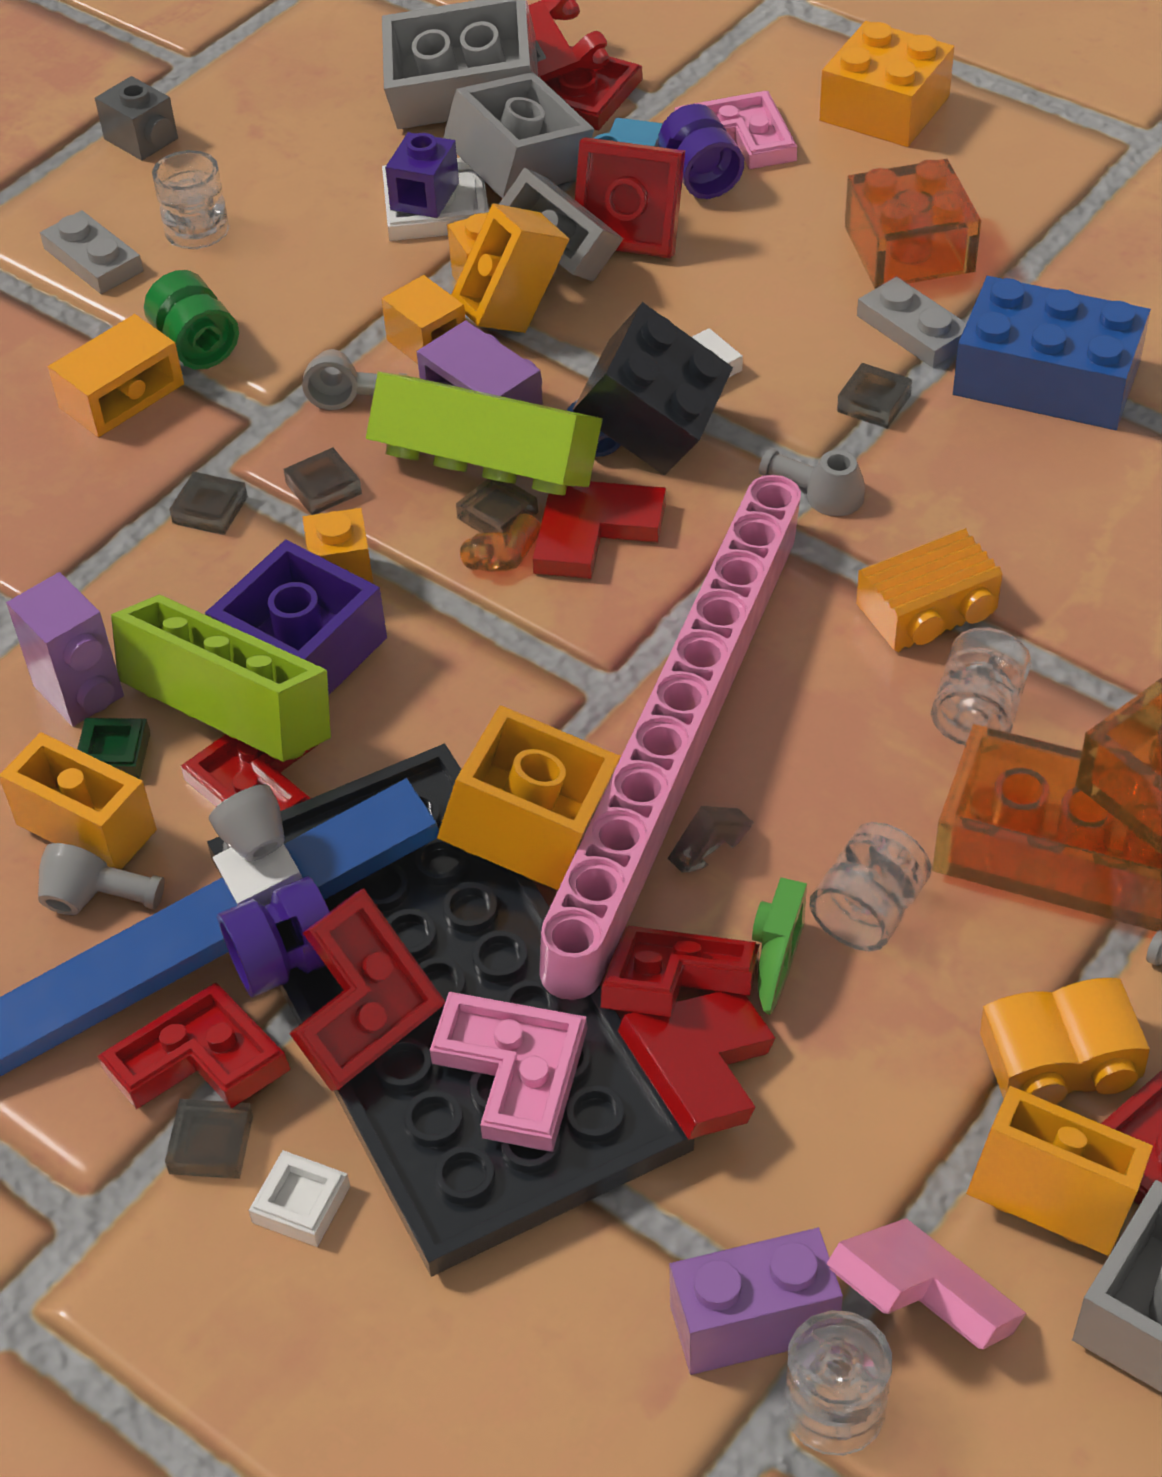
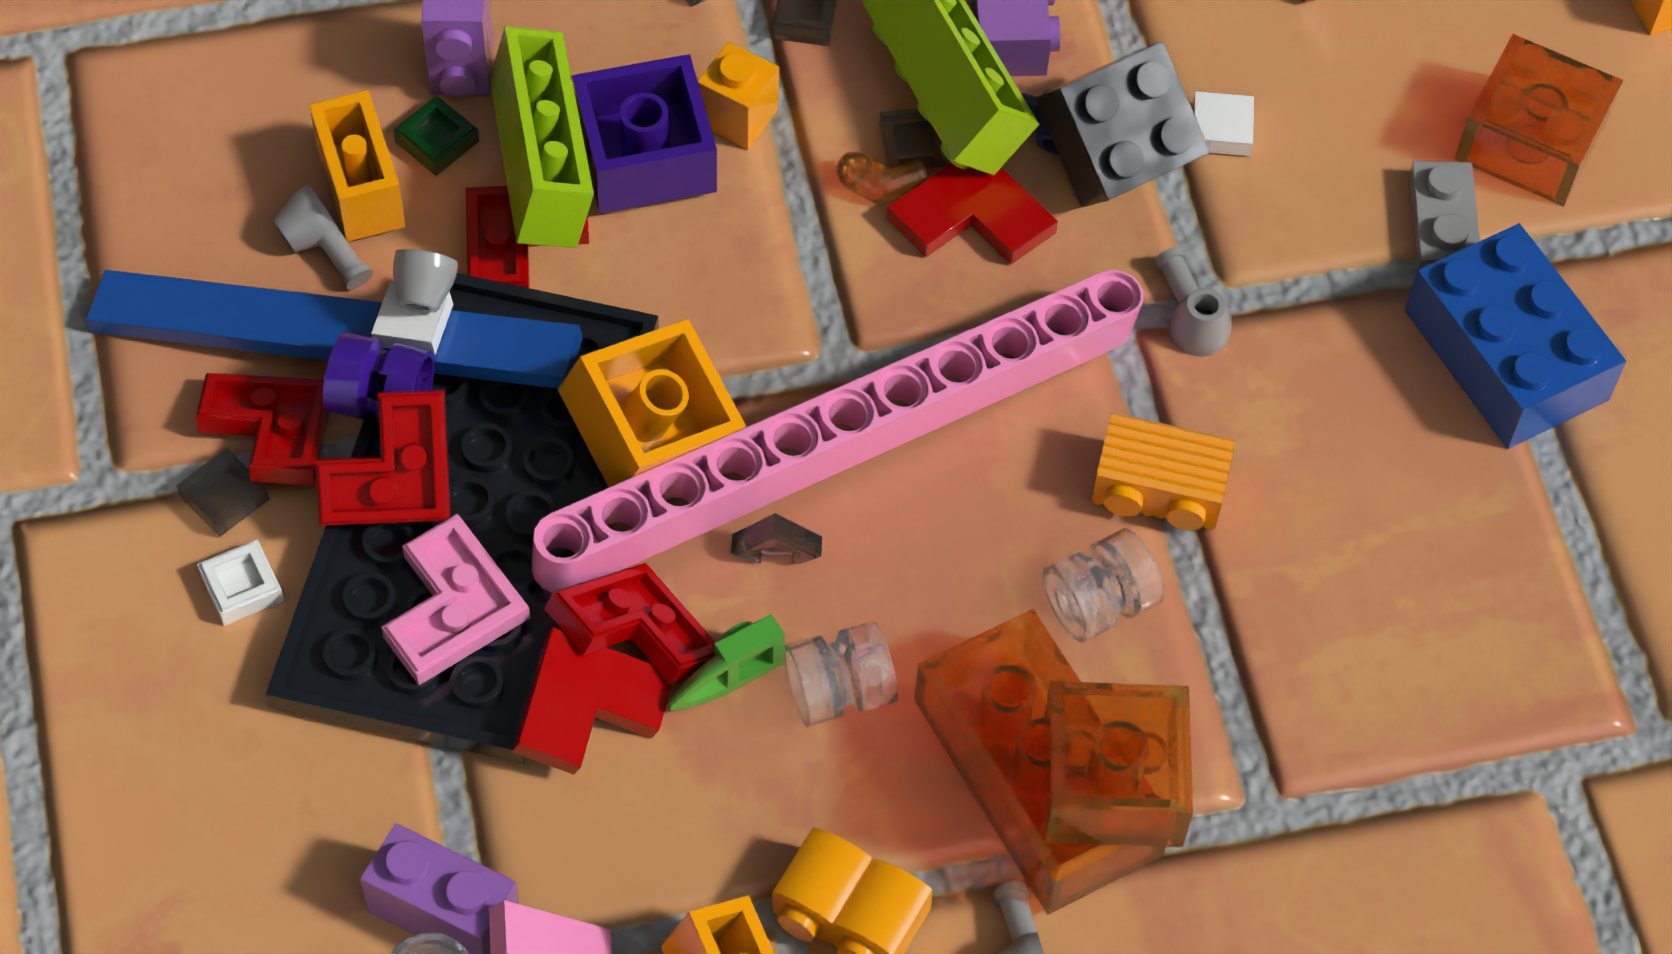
camera: 35 degrees right, 10 degrees up
(874, 395) = (1329, 262): clear smoke tile -> none

